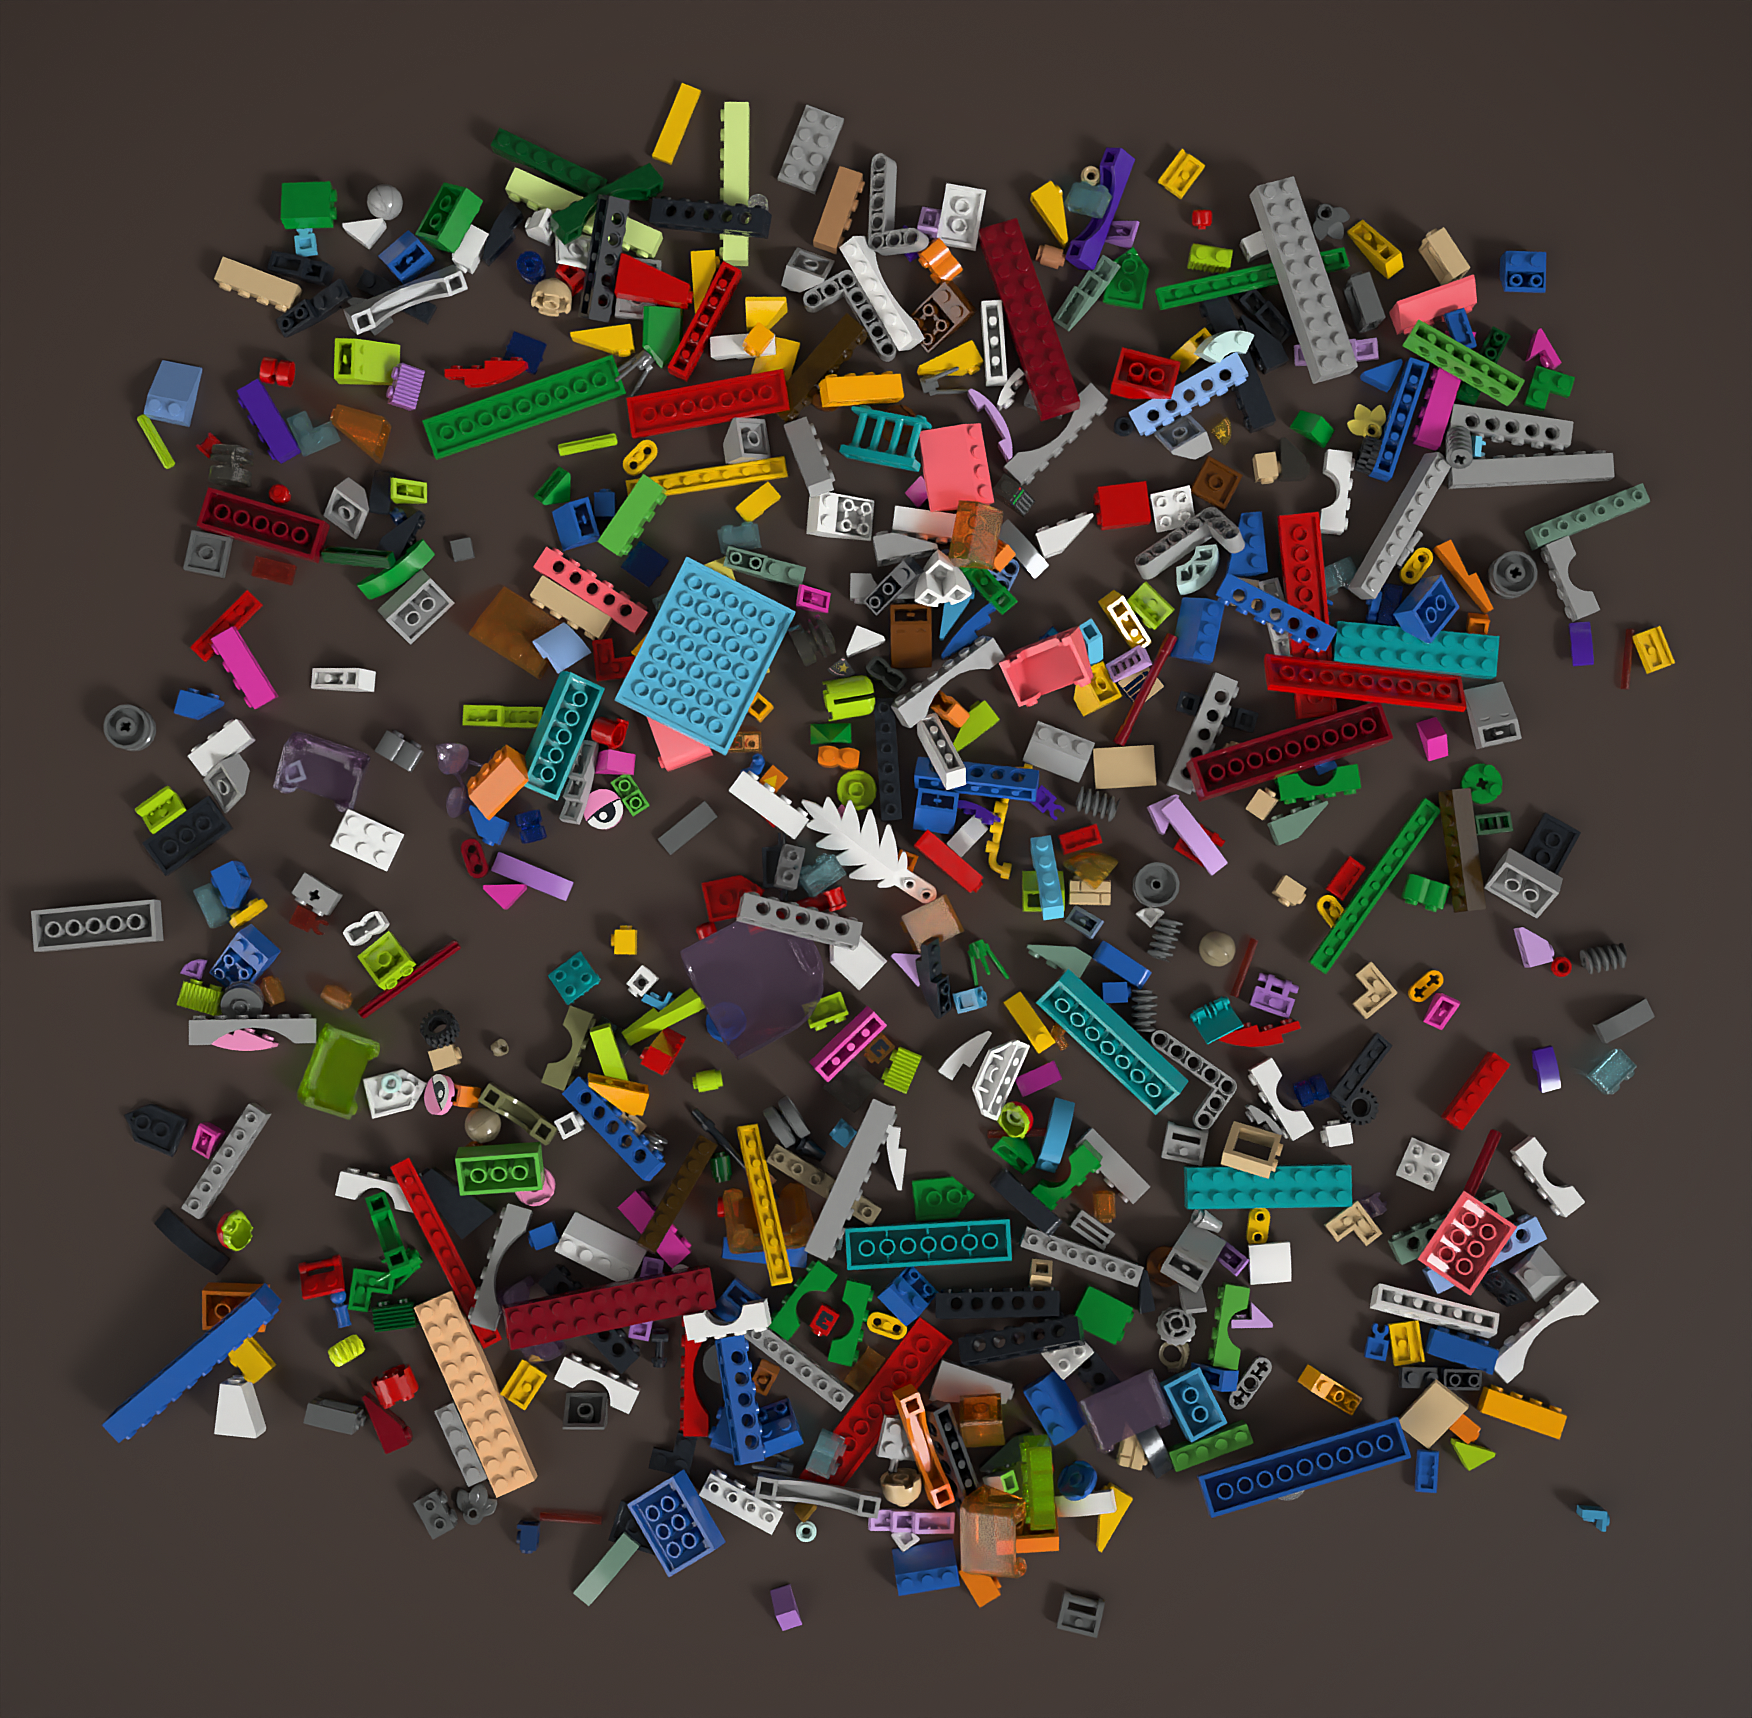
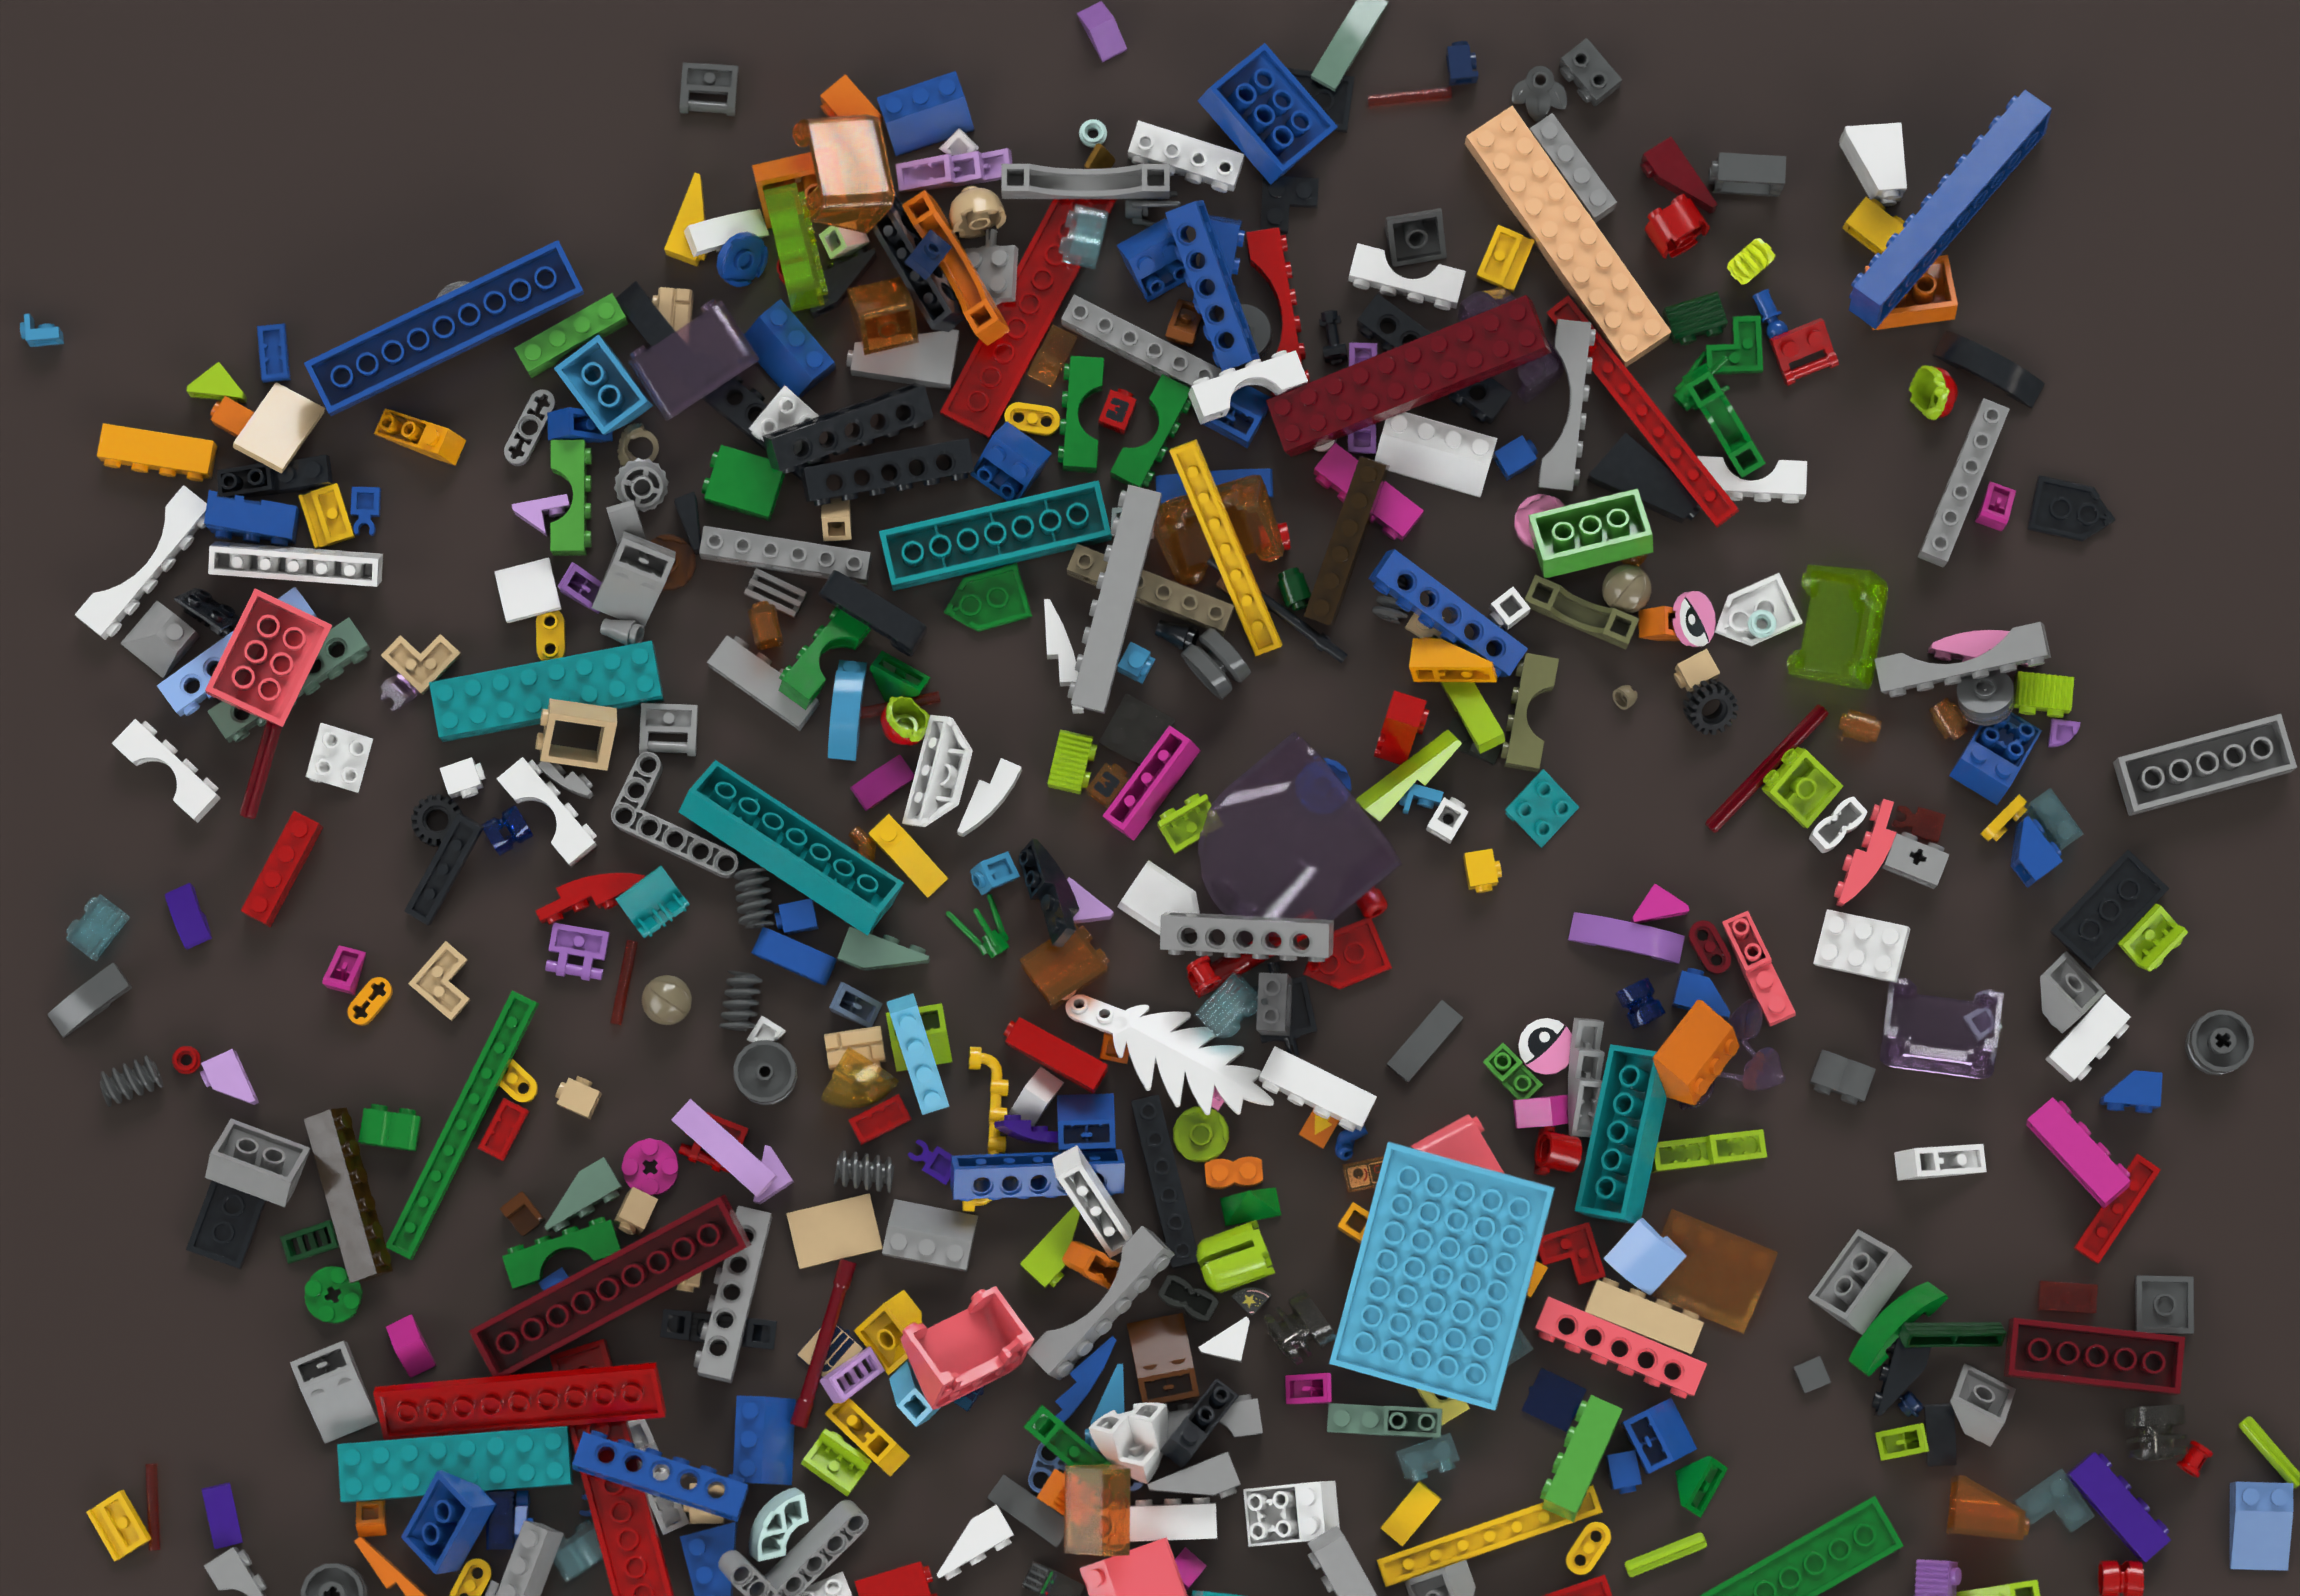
camera: 170 degrees right, 5 degrees down
(279, 494) = (2082, 1407): red piece -> none
(354, 896) = (1863, 865): none -> coral slope
(443, 836) = (1758, 968): none -> coral slope
(707, 1080) = (1333, 701): lime brick -> none
(942, 1459) = (928, 254): none -> dark blue plate
(1247, 822) = (649, 1151): none -> dark pink plate
(1340, 817) = (522, 1213): none -> reddish brown panel

